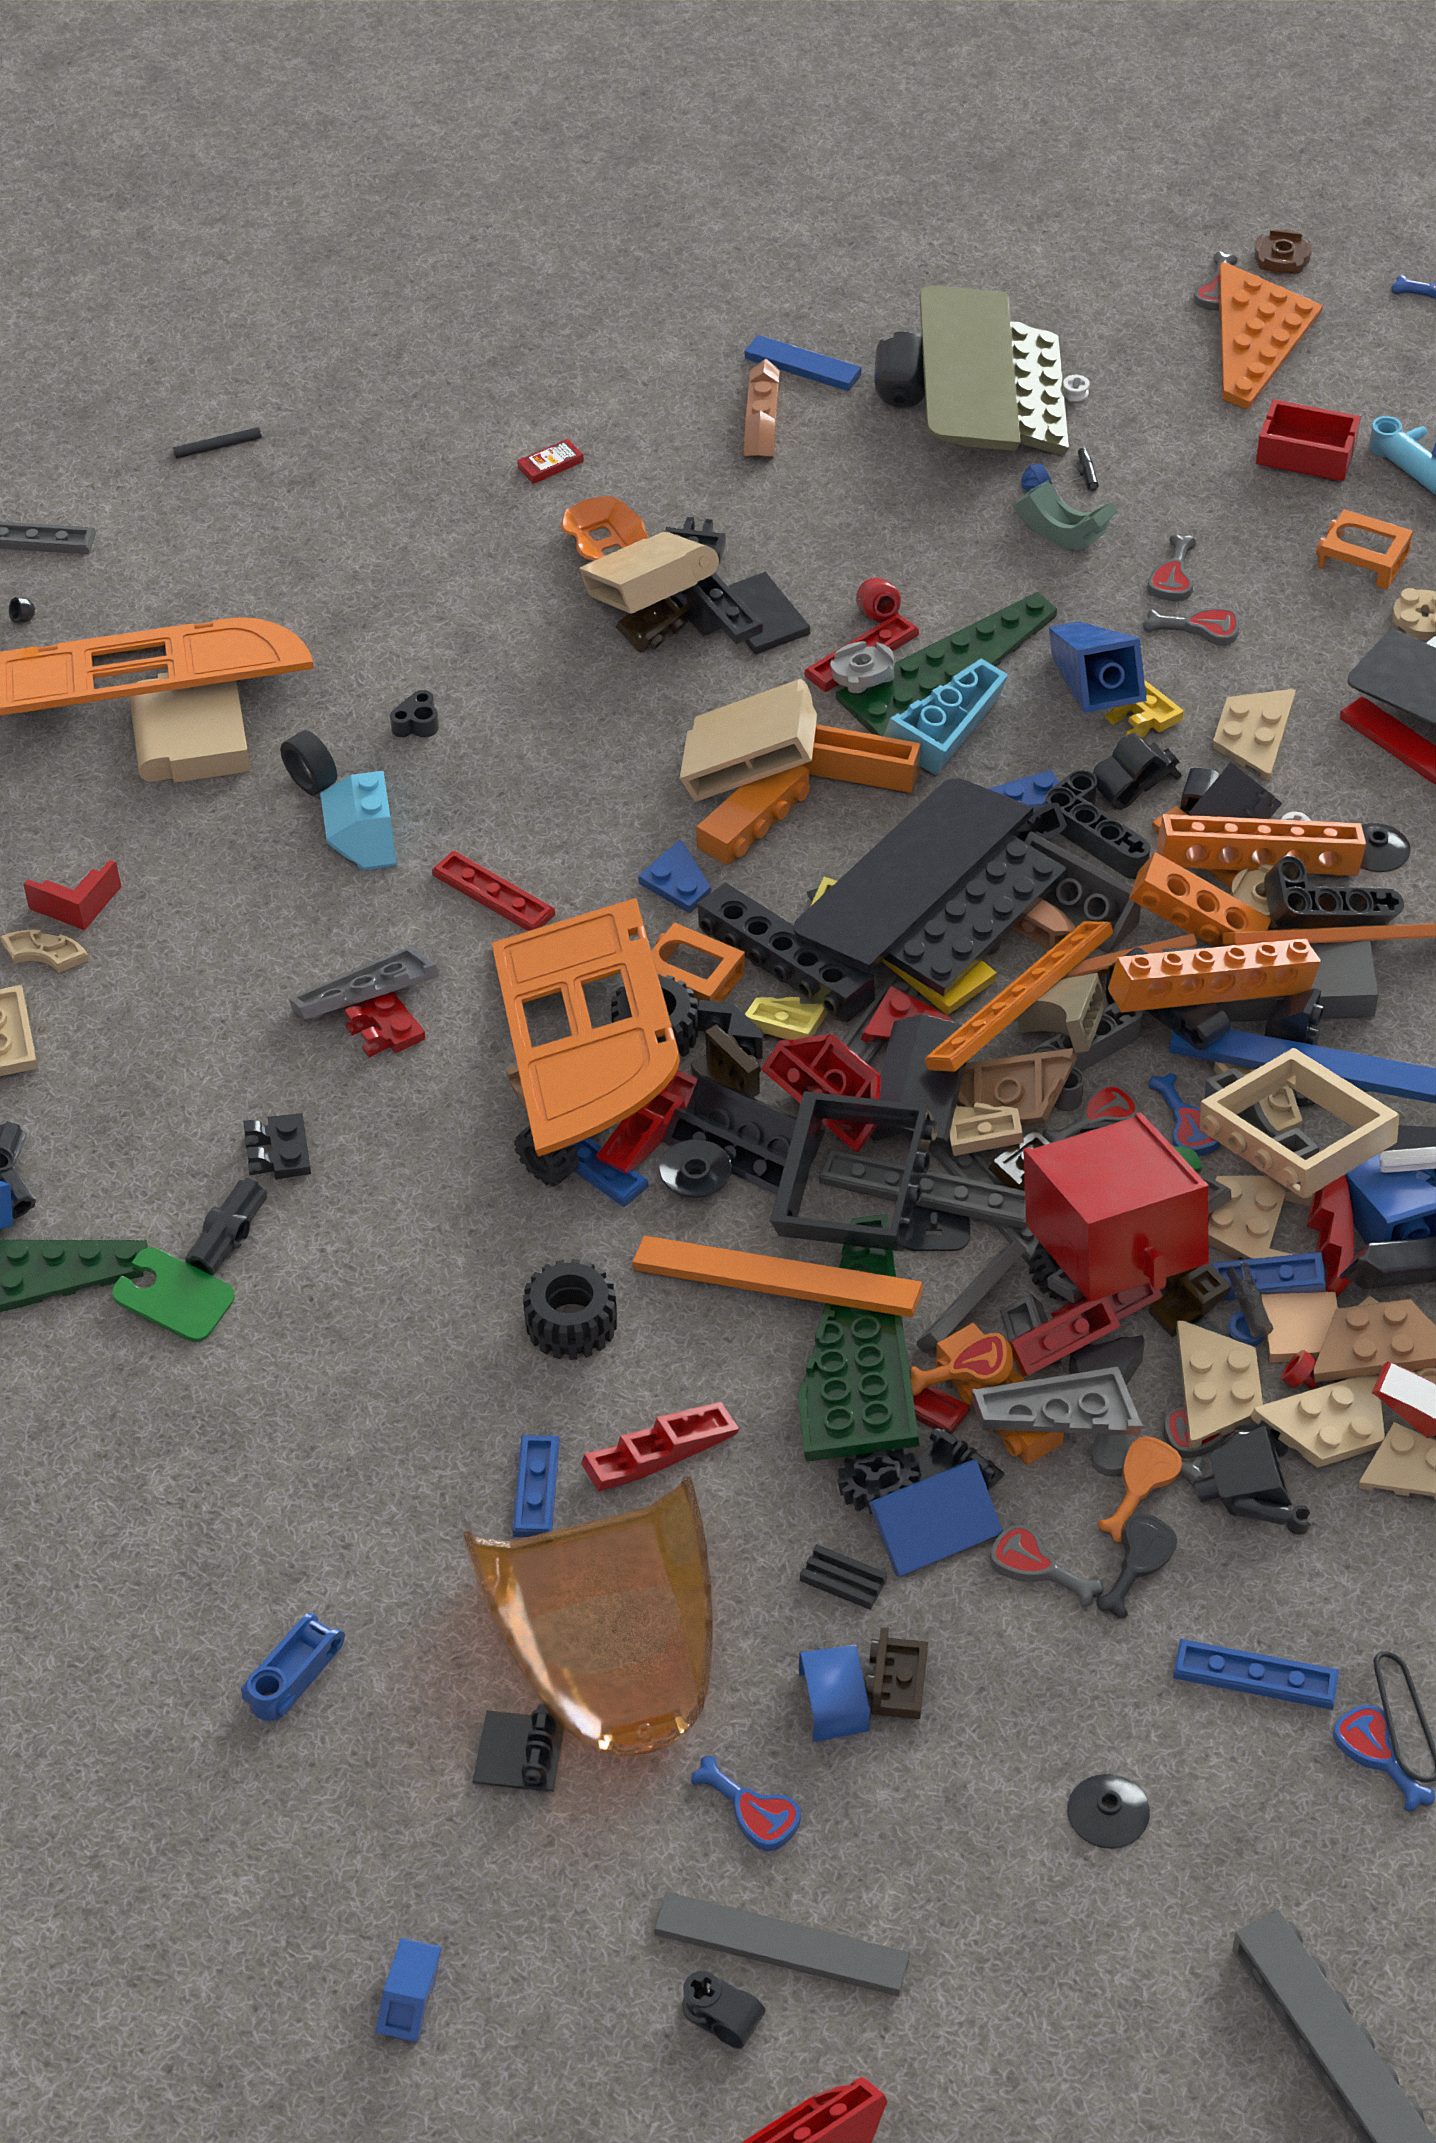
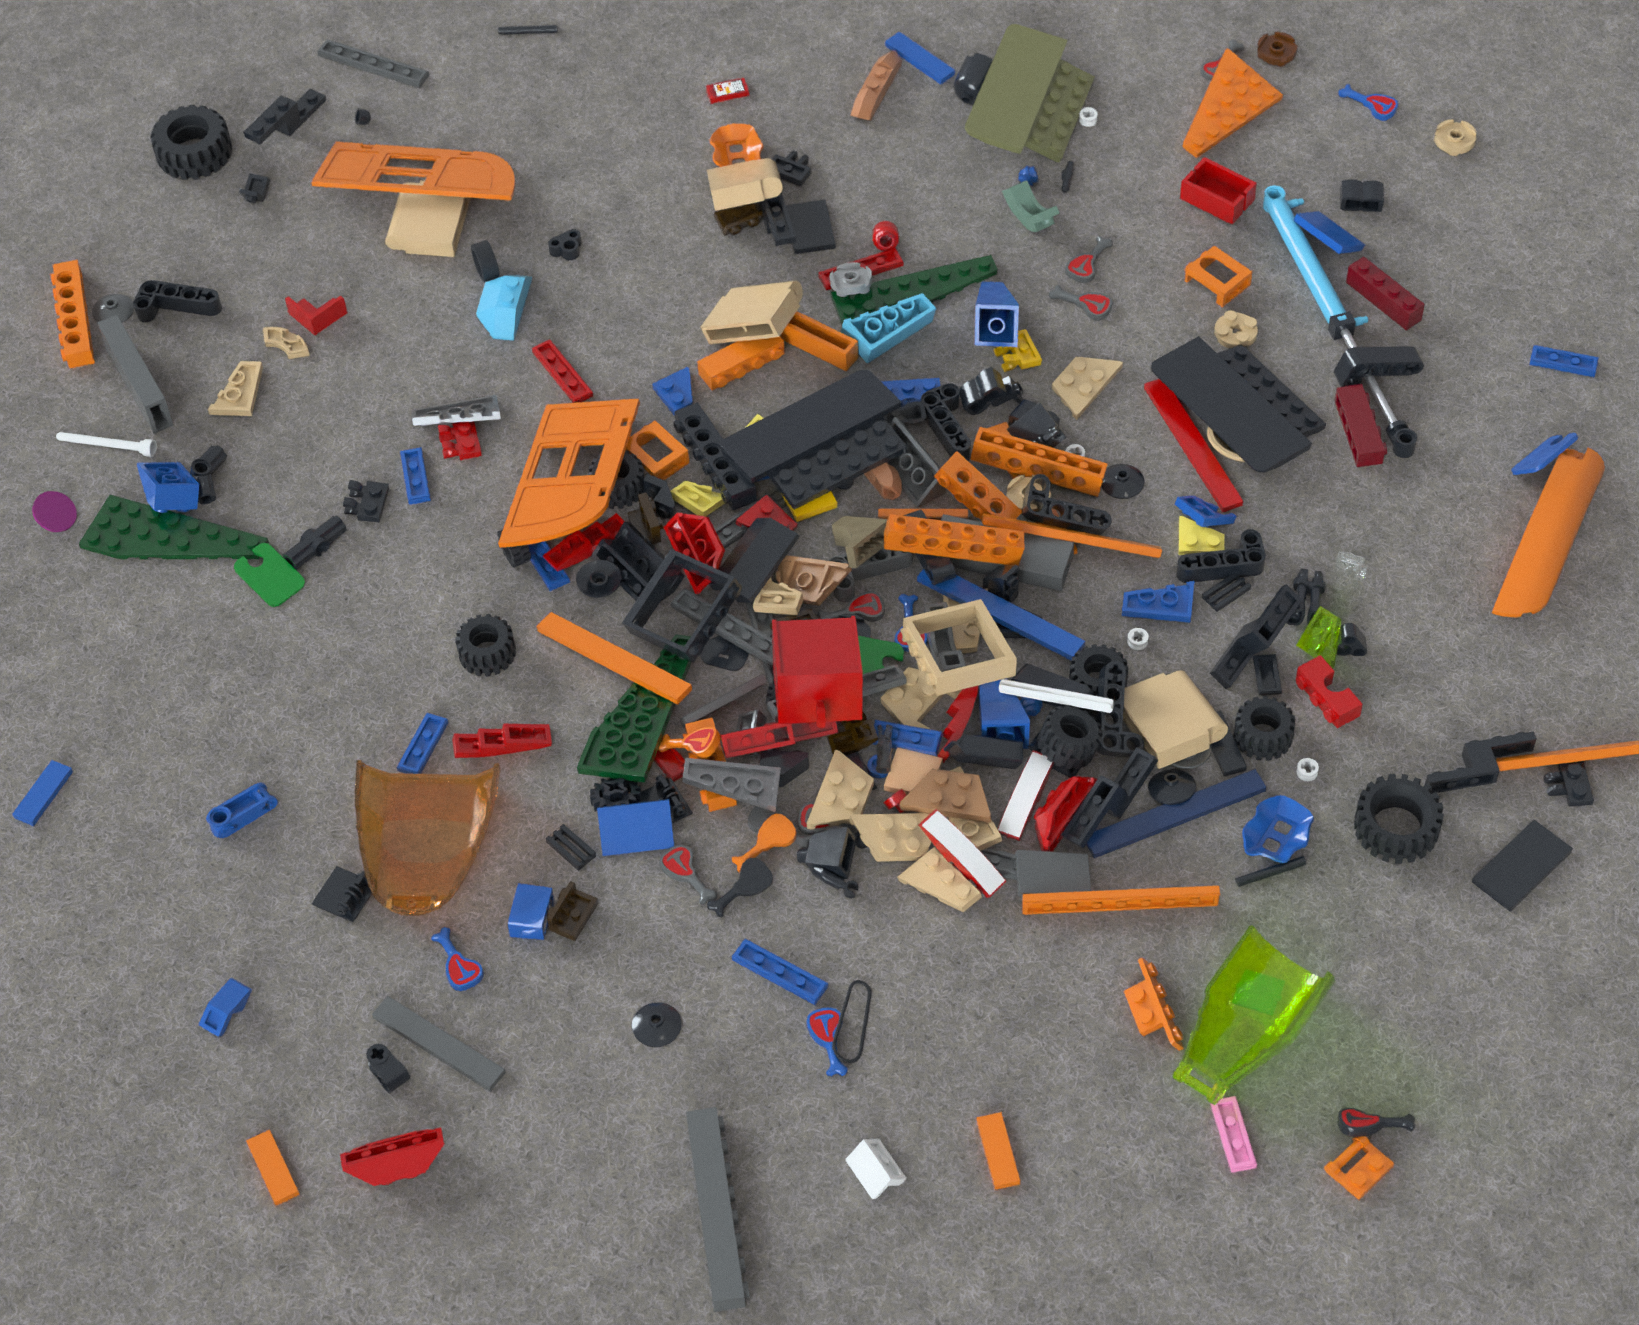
camera: 20 degrees right, 5 degrees up
(337, 1092) = (415, 475): none -> blue tile
(1018, 996) = (836, 521): orange tile -> none

